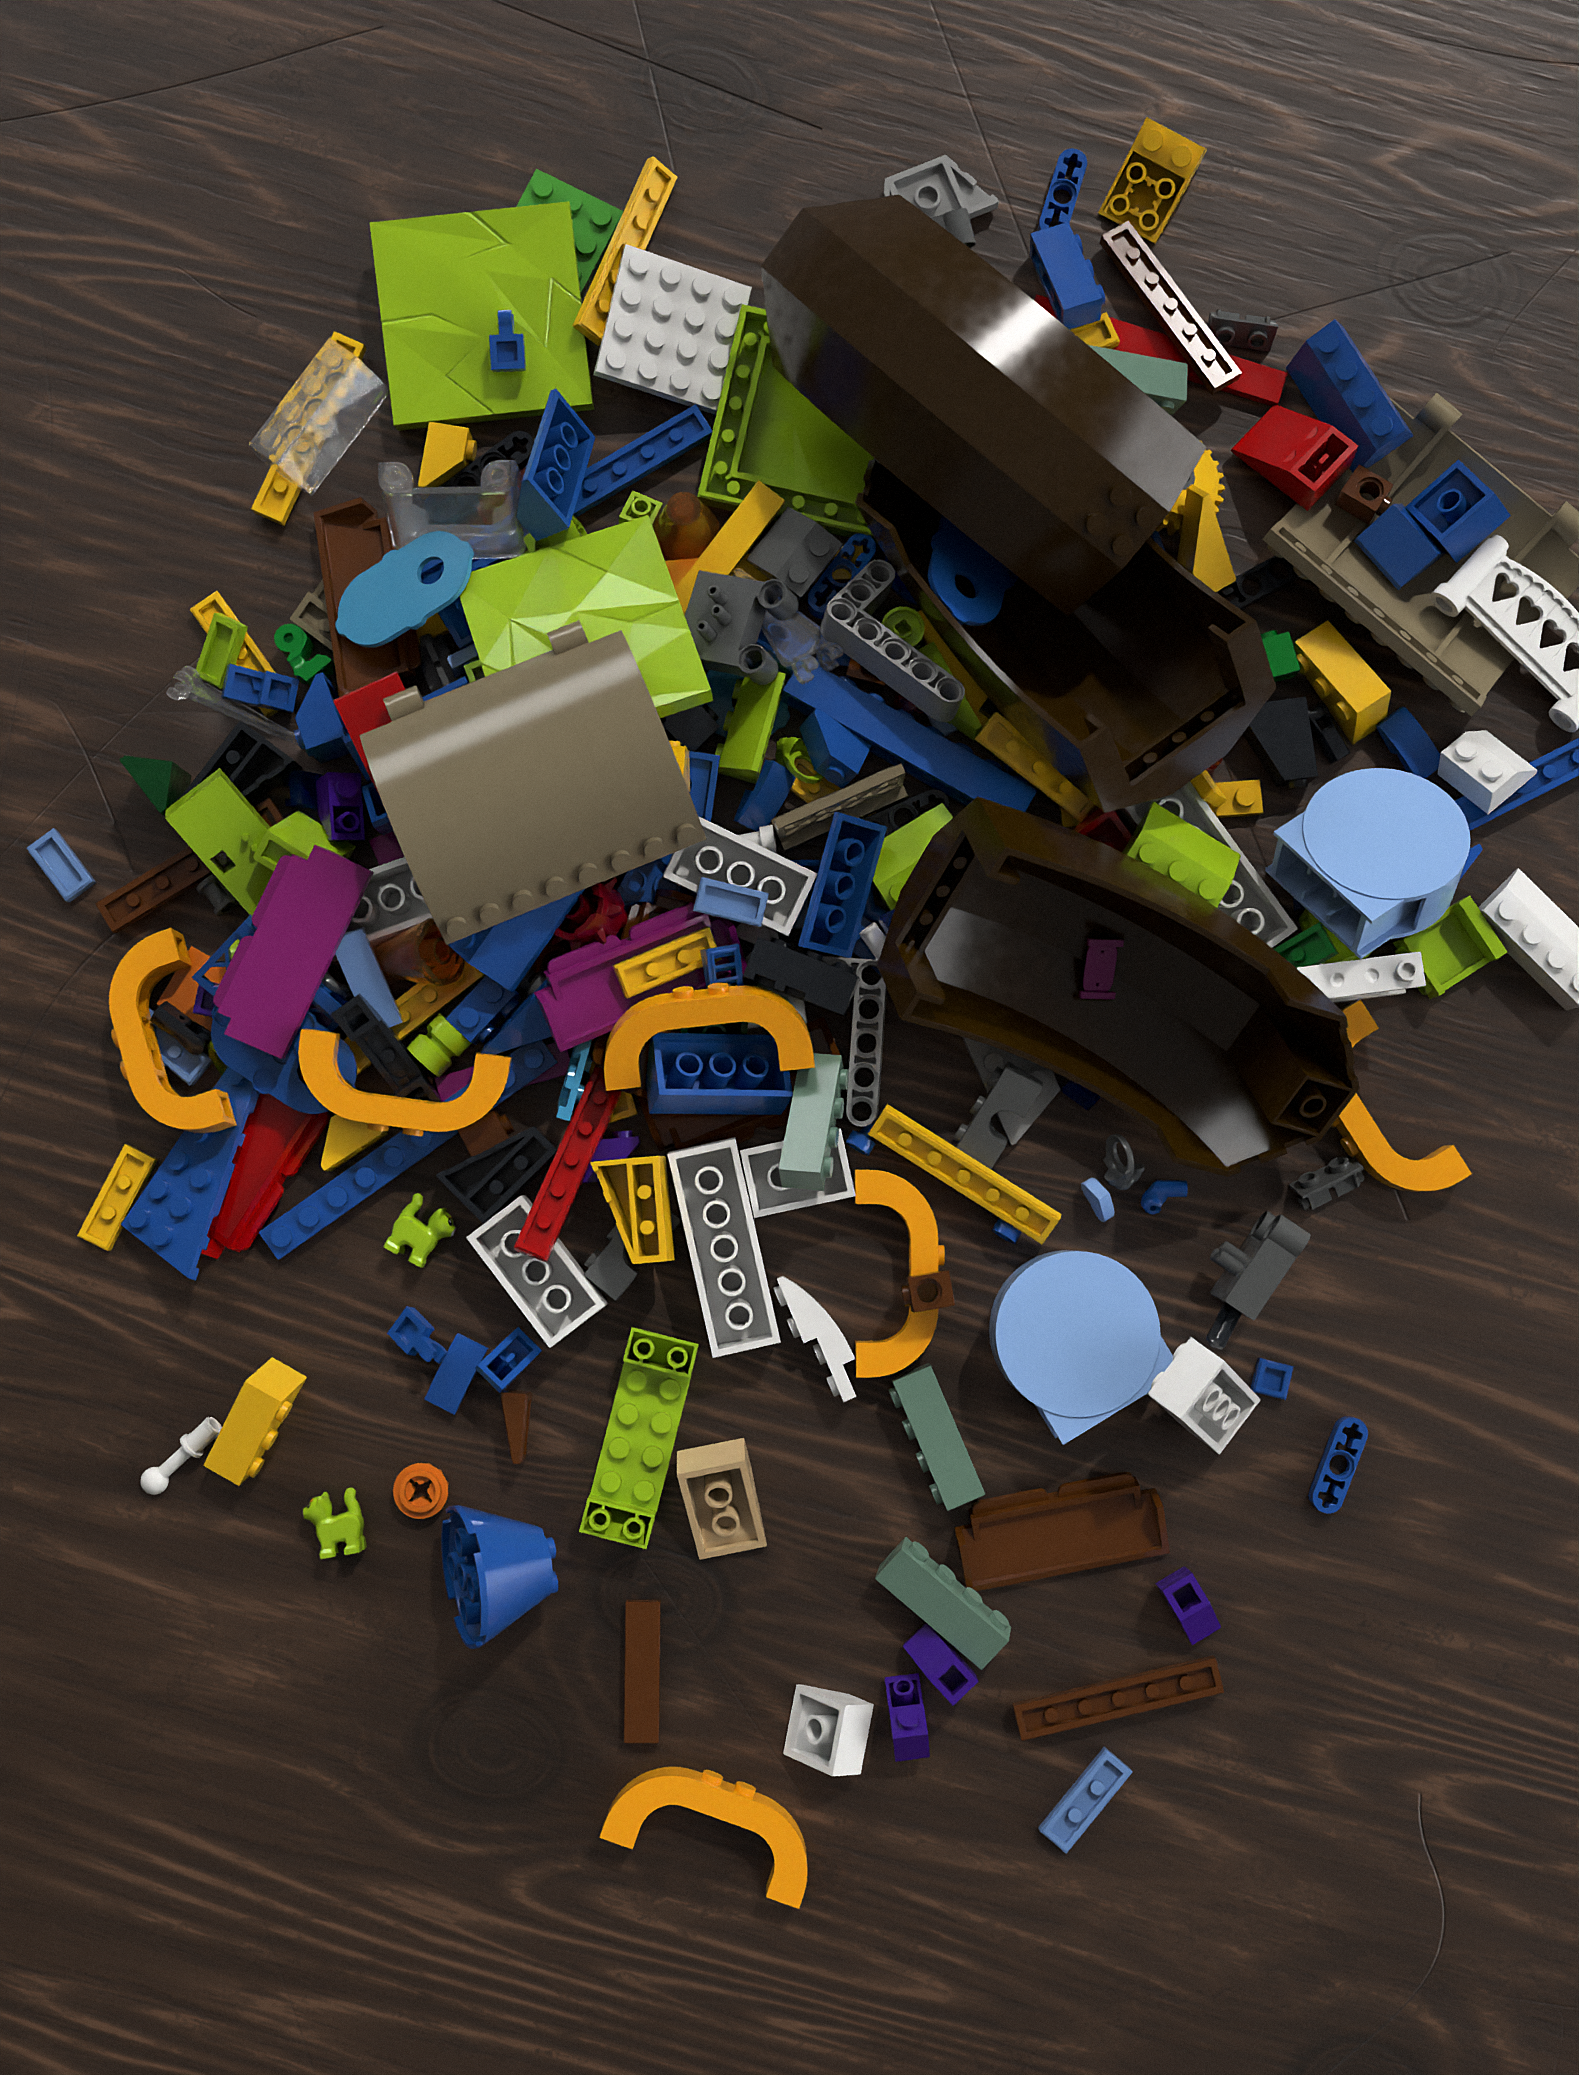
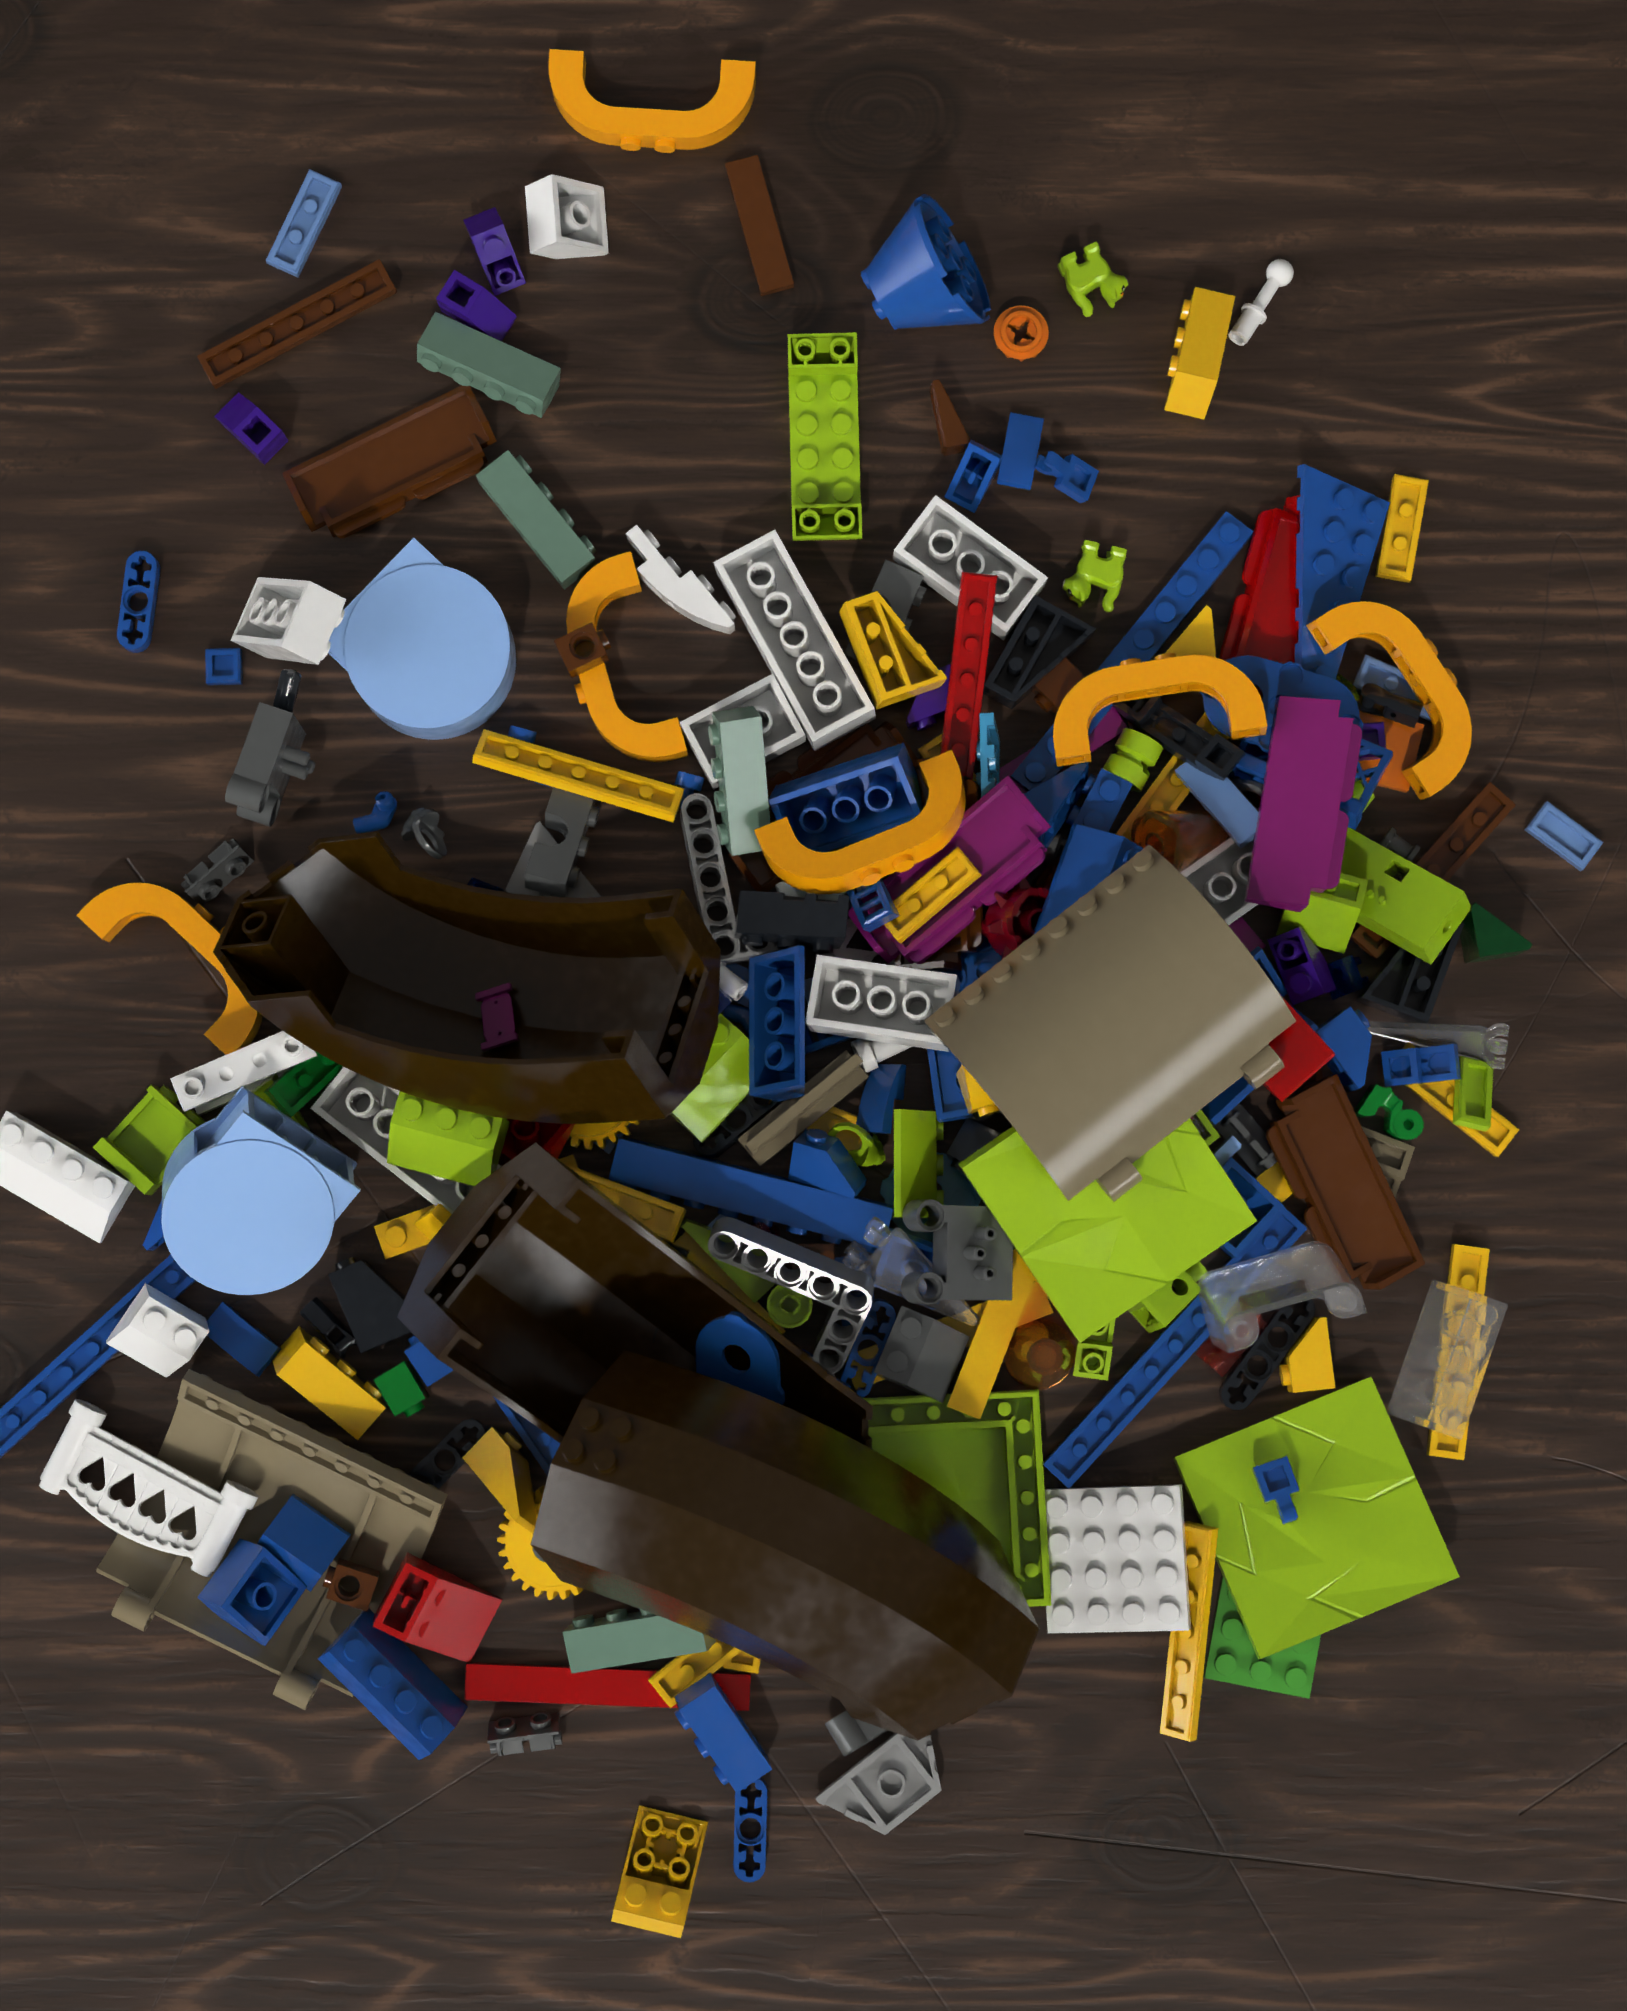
camera: 165 degrees right, 0 degrees up
(391, 595) = (1317, 1186): dark azure piece -> none
(554, 470) = (1187, 1364): blue slope -> none
(720, 1498) = (730, 404): tan slope -> none
(730, 902) = (882, 968): medium blue tile -> none
(1098, 1198) = (439, 792): light blue tile -> none
(1170, 307) = (605, 1733): plate -> none

